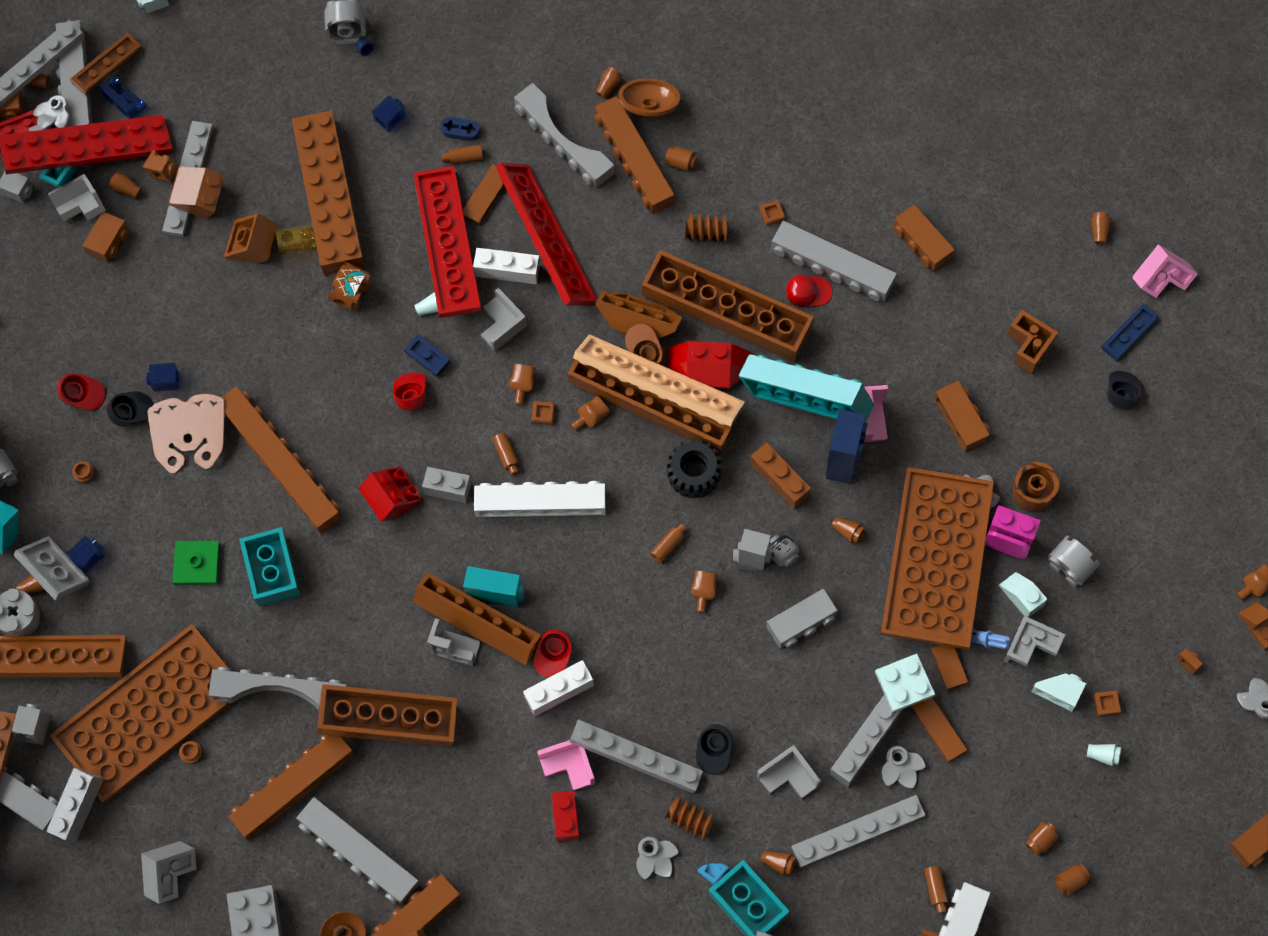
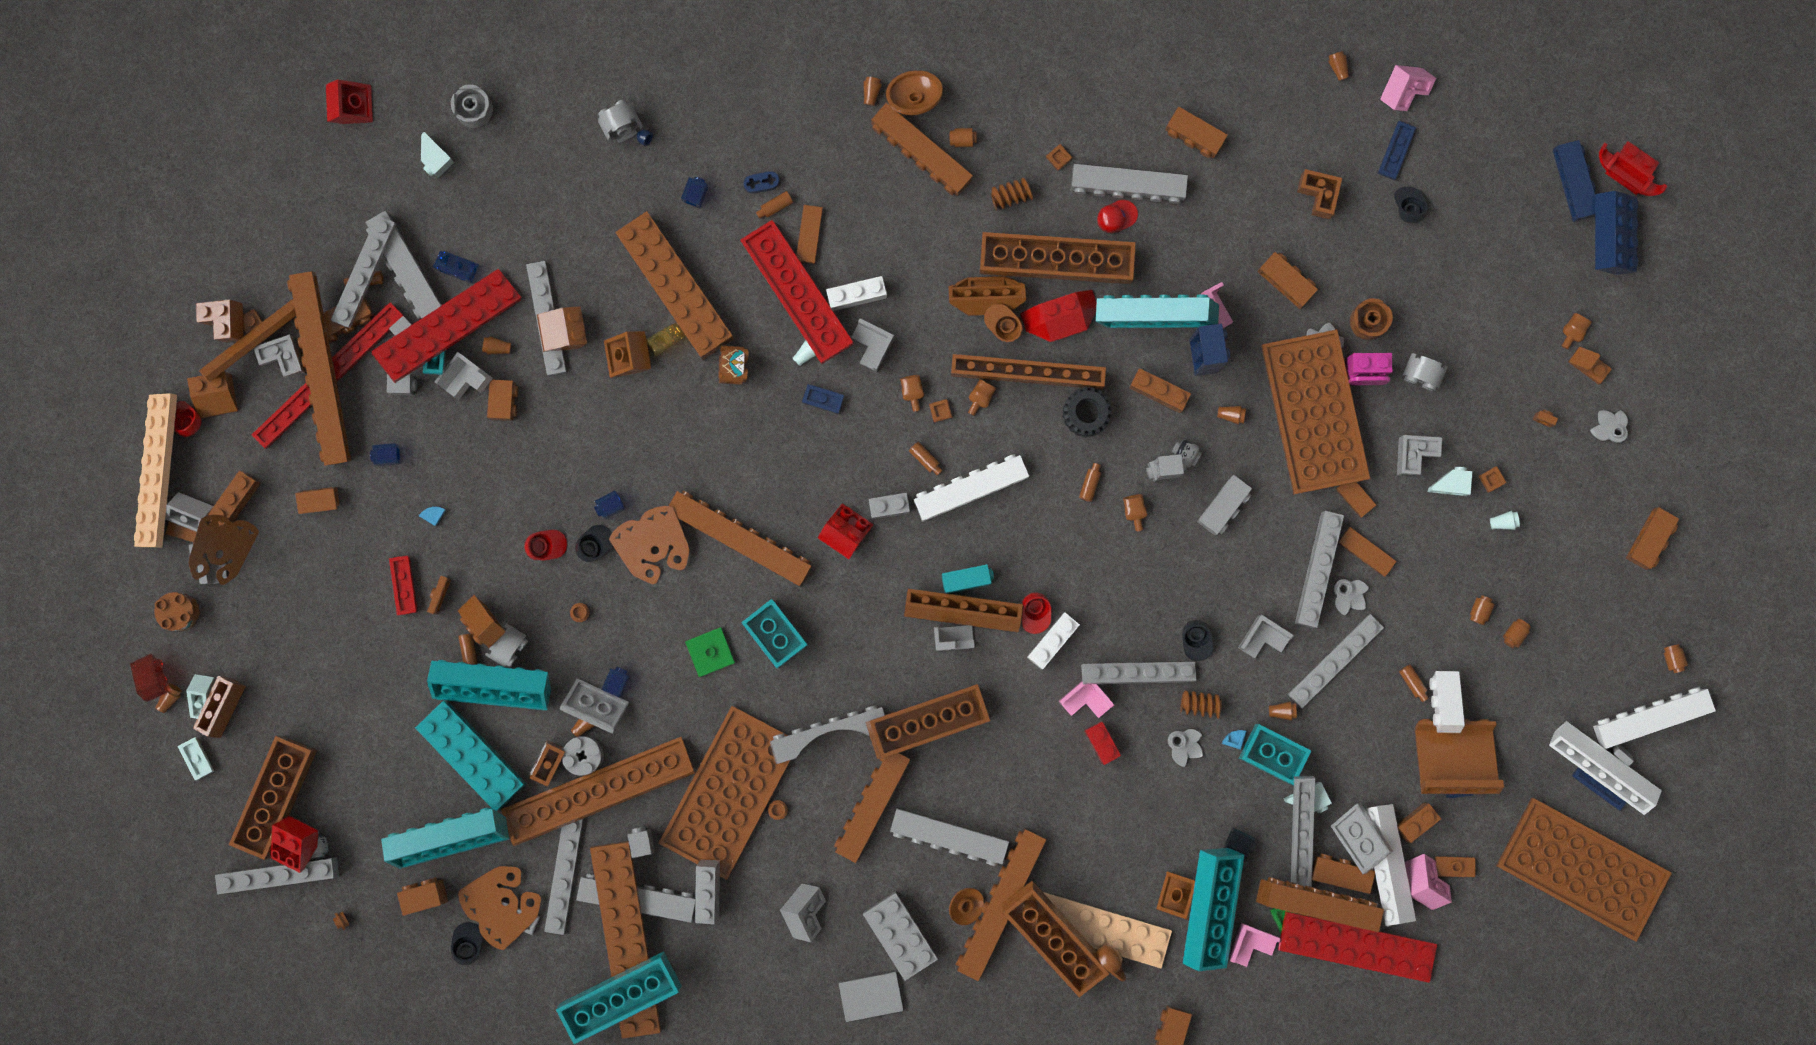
camera: 25 degrees left, 15 degrees up
(52, 114) = (403, 311): light grey plate -> none
(106, 63) = (427, 241): dark orange tile -> none
(161, 167) = (520, 318): dark orange brick -> none
(410, 391) = (822, 435): red cap -> none
(546, 234) = (878, 252): red plate -> none
(590, 163) = (888, 172): light grey arch -> none
(659, 380) = (1029, 348): light nougat plate -> none
(904, 683) = (1331, 530): light aqua plate -> none
(990, 639) = (1383, 464): medium blue axle -> none
(1023, 594) = (1393, 414): light aqua slope -> none

